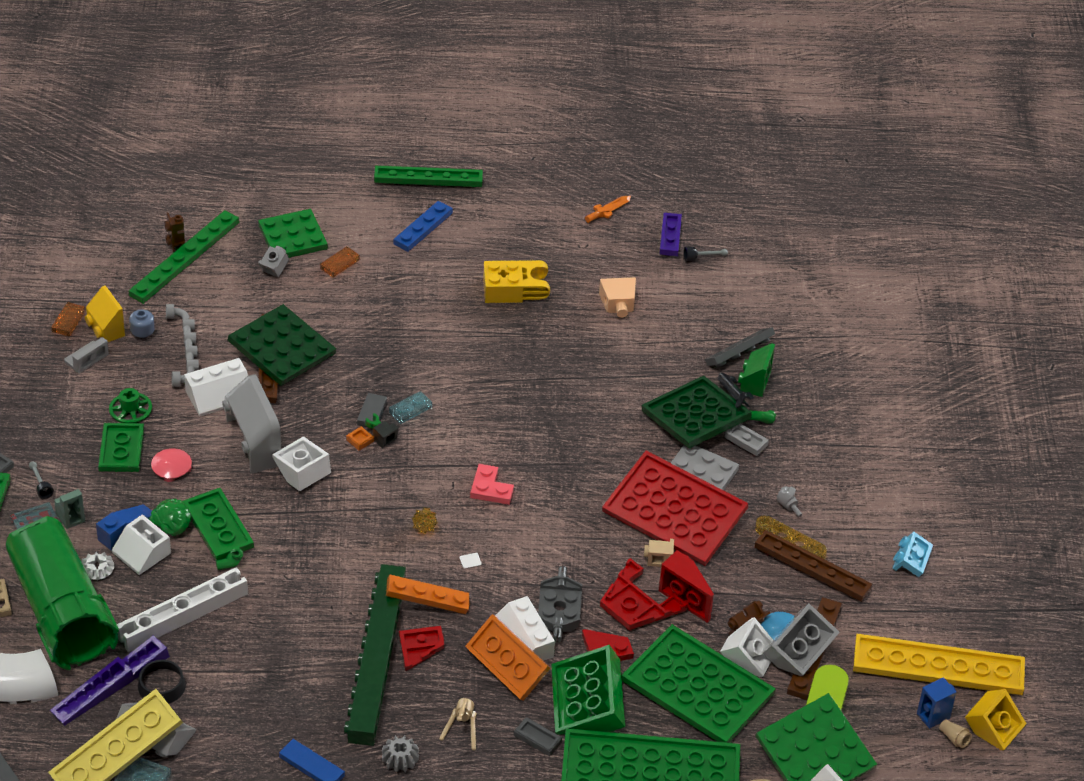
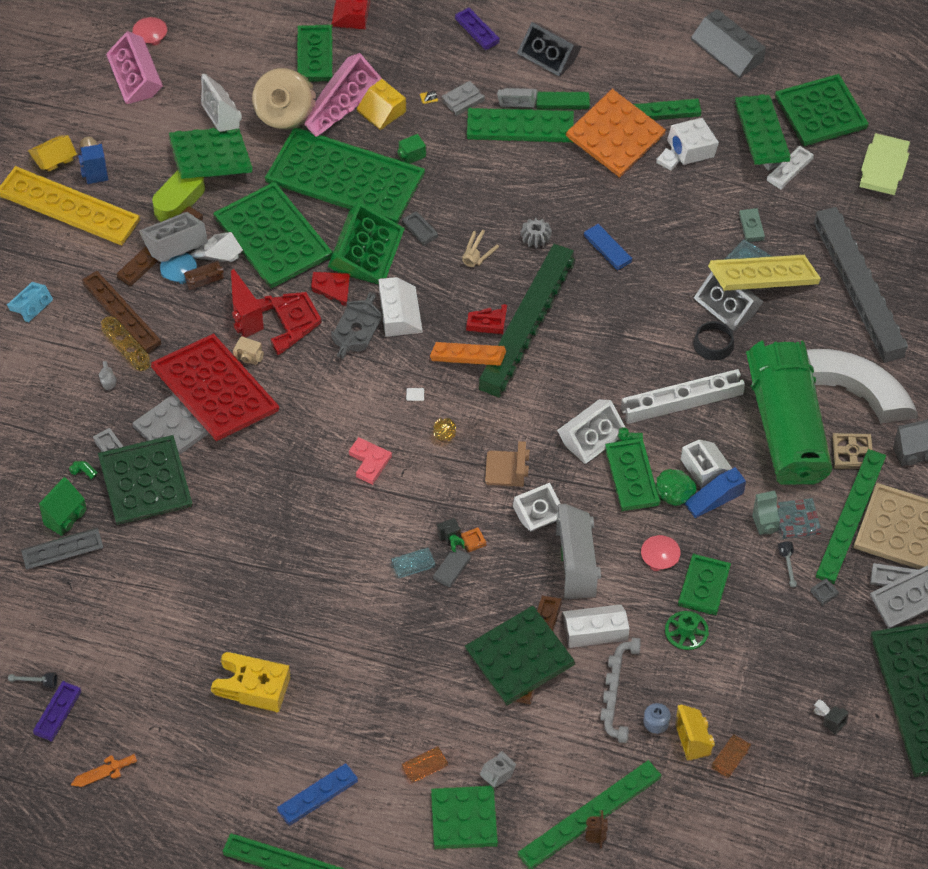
camera: 160 degrees left, 10 degrees up
(88, 355) = (719, 701): light grey panel -> none
(105, 567) = (741, 463): white gear -> none
(109, 680) = (738, 359): dark purple slope -> none
(272, 554) = (592, 430): none -> white slope
(347, 503) = (506, 467): none -> medium nougat bracket
(507, 657) = (421, 284): orange plate -> none
(618, 295) = (151, 639): light nougat torso -> none
(729, 383) = (97, 477): black piece -> none

